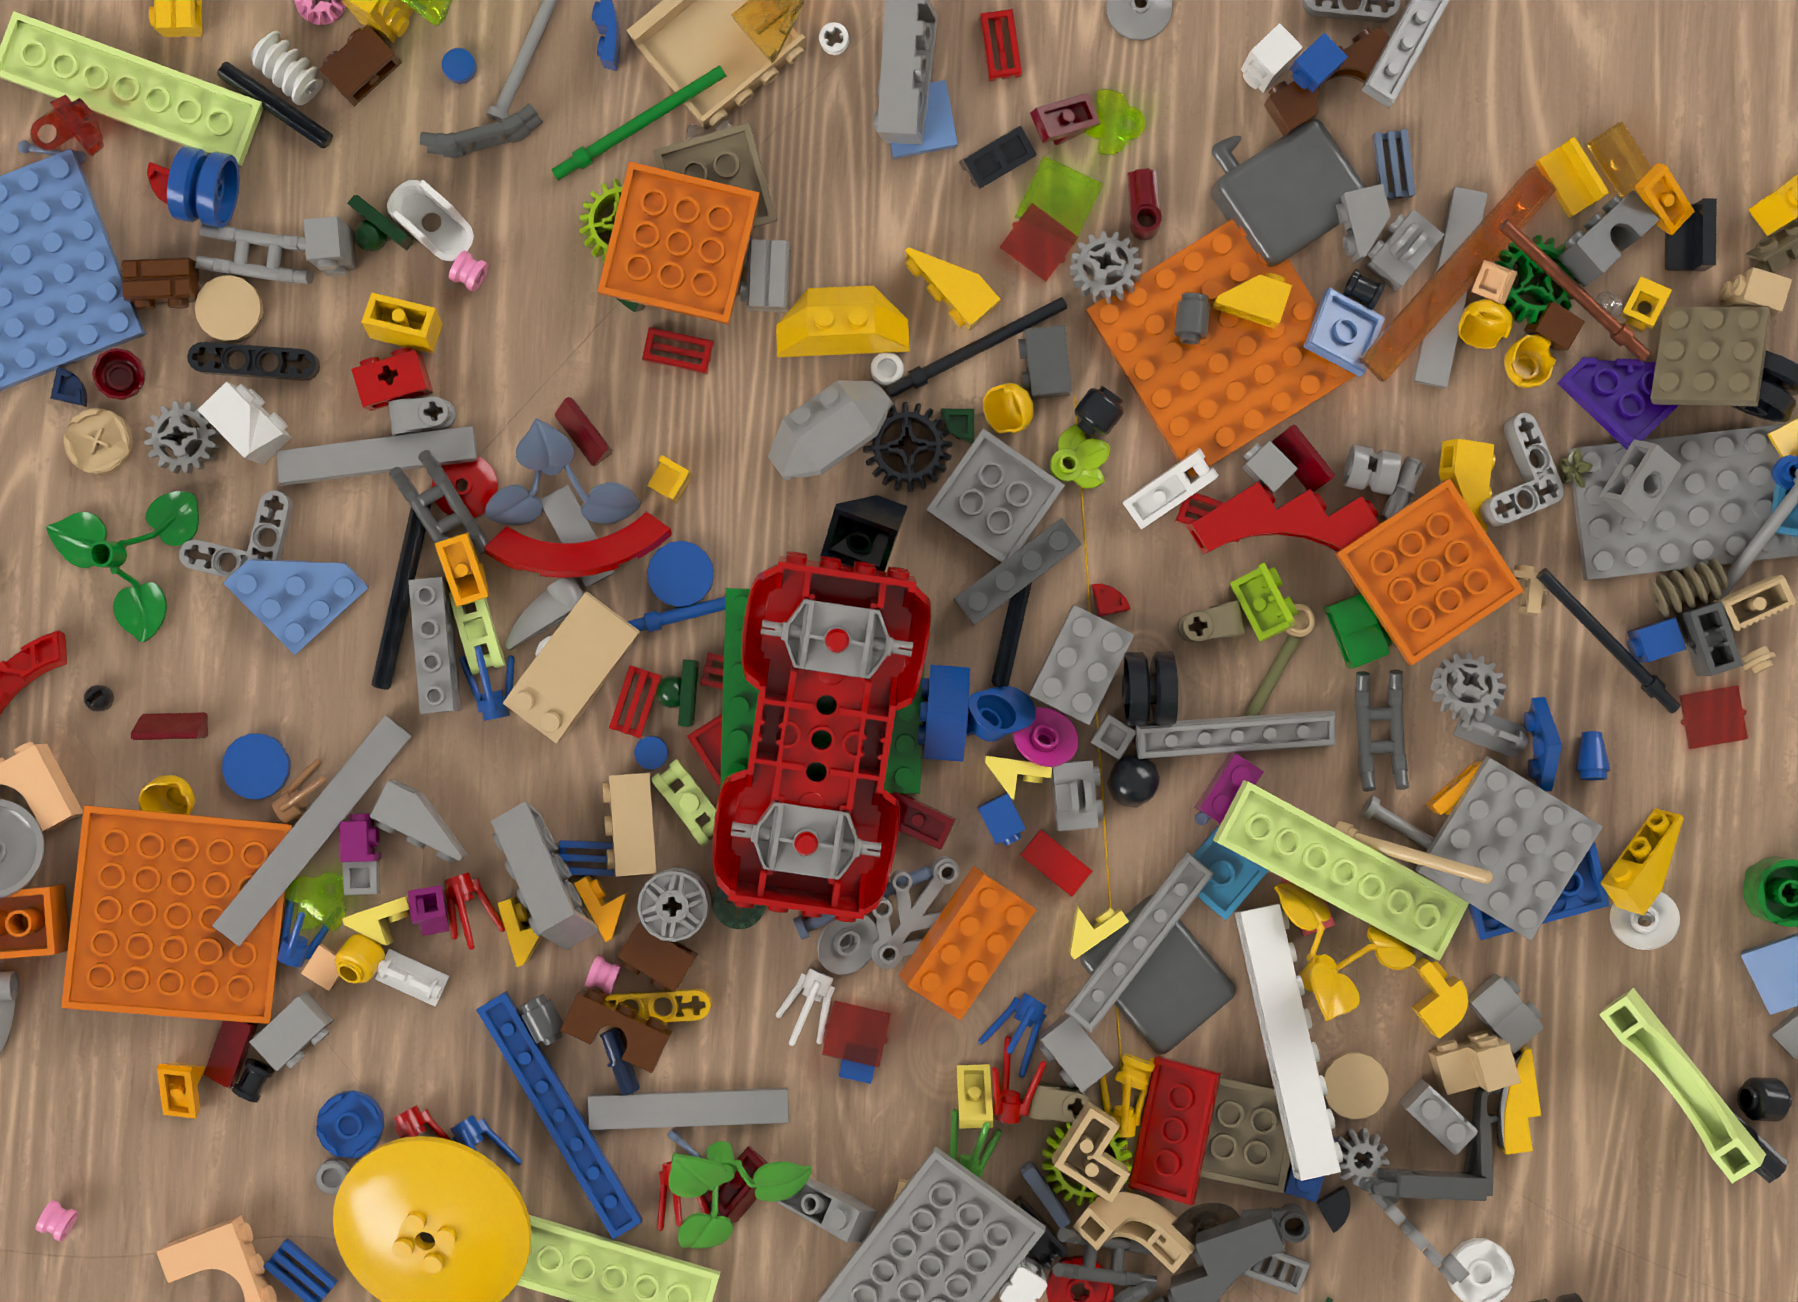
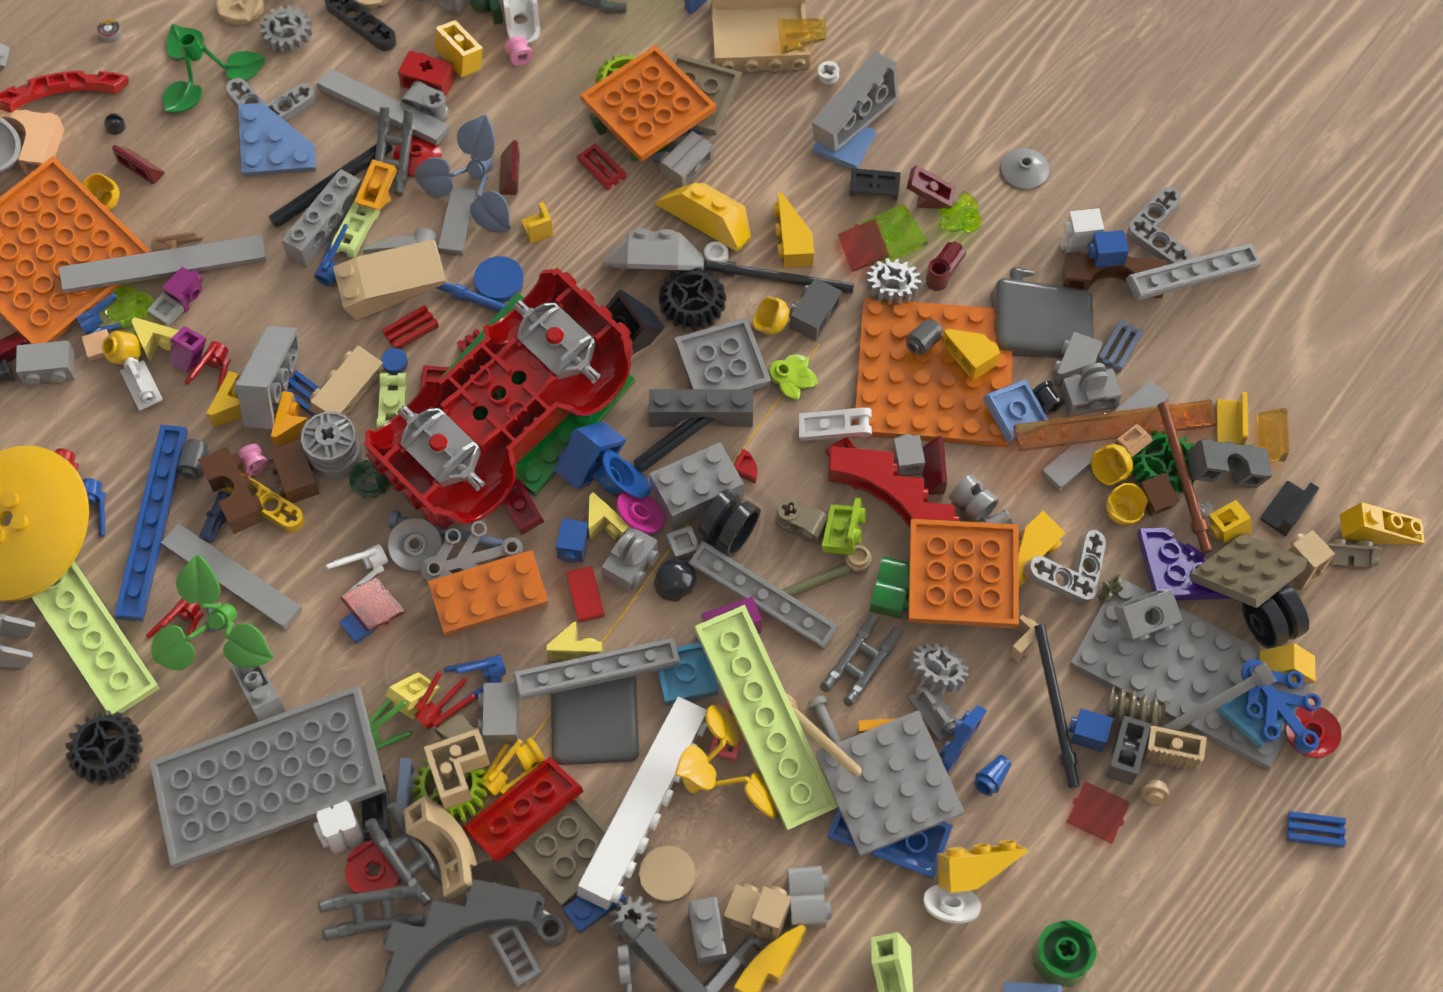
camera: 30 degrees right, 25 degrees down
(245, 423) = (327, 38): white slope -> none
(256, 766) = (164, 214): blue tile -> none
(350, 1124) = (29, 432): blue tile -> none
(414, 815) = (227, 297): light grey slope -> none
(580, 558) = (444, 225): red tile -> none
(584, 156) = (635, 39): green bar -> none
(681, 693) = (442, 339): dark green tile -> none
(736, 1196) = (209, 649): dark red slope -> none
(959, 423) = (736, 308): dark green tile -> none
(1004, 73) = (916, 150): red tile -> none
(1098, 411) = (825, 354): black head -> none
(1335, 1207) = (589, 946): black tile -> none
(1445, 1004) = (770, 861): yellow brick -> none
(1664, 198) = (1284, 468): light orange slope -> none

